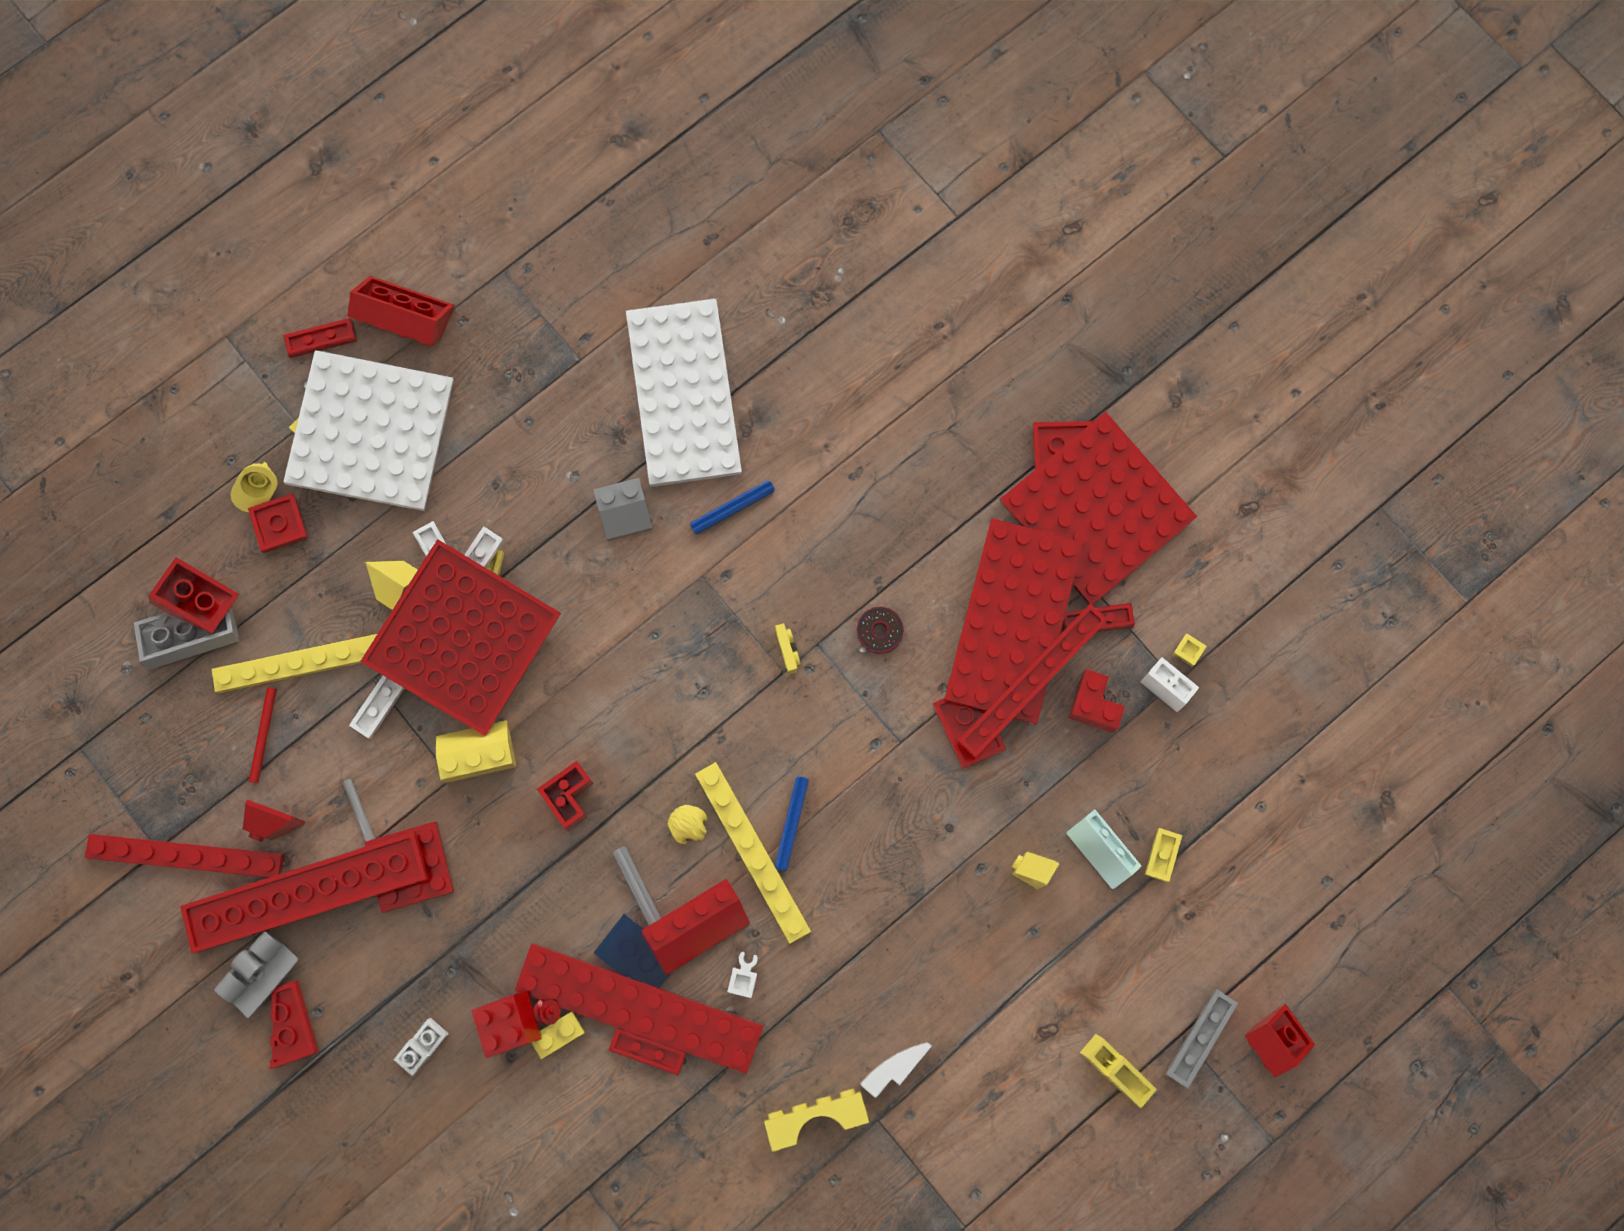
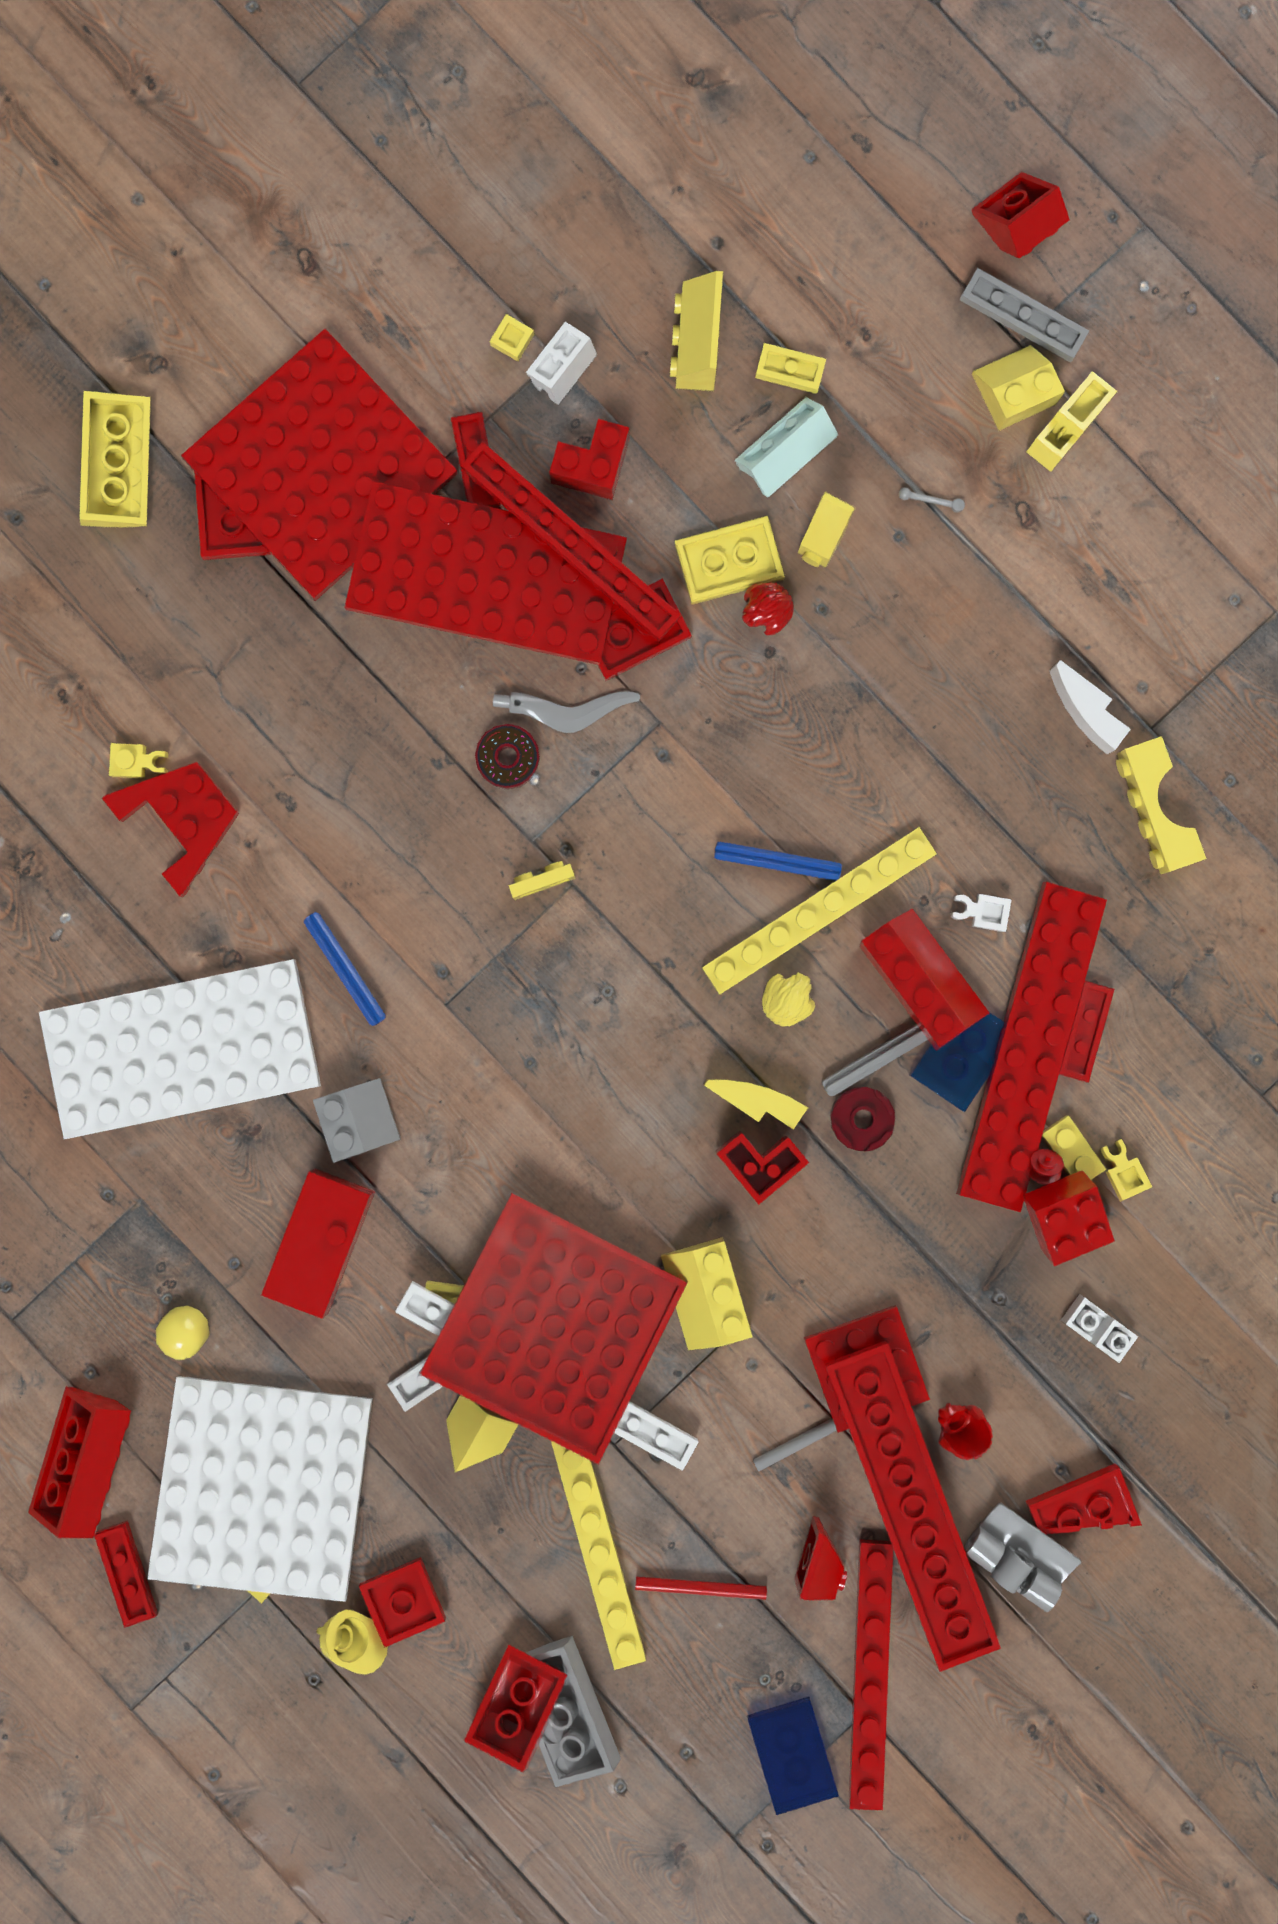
camera: 90 degrees left, 10 degrees up
(132, 794) = (792, 1755): none -> clear blue tile
(355, 935) = (964, 1431): none -> red hair
(483, 383) = (182, 1332): none -> light yellow hair
(534, 1075) = (1127, 1176): none -> light yellow plate
(537, 478) = (318, 1243): none -> red brick
(604, 886) = (843, 1119): none -> dark red tile
(615, 796) = (757, 1100): none -> light yellow slope
(853, 407) = (189, 807): none -> red wing
(890, 369) = (131, 761): none -> light yellow plate
(906, 673) = (560, 717): none -> light grey piece
(982, 826) = (768, 607): none -> red hair
(1019, 801) = (729, 560): none -> light yellow tile
(1056, 978) = (956, 505): none -> light grey hinge
(1105, 367) = (114, 460): none -> light yellow slope
(1146, 1029) = (1018, 386): none -> light yellow slope
(1189, 785) = (697, 332): none -> light yellow slope

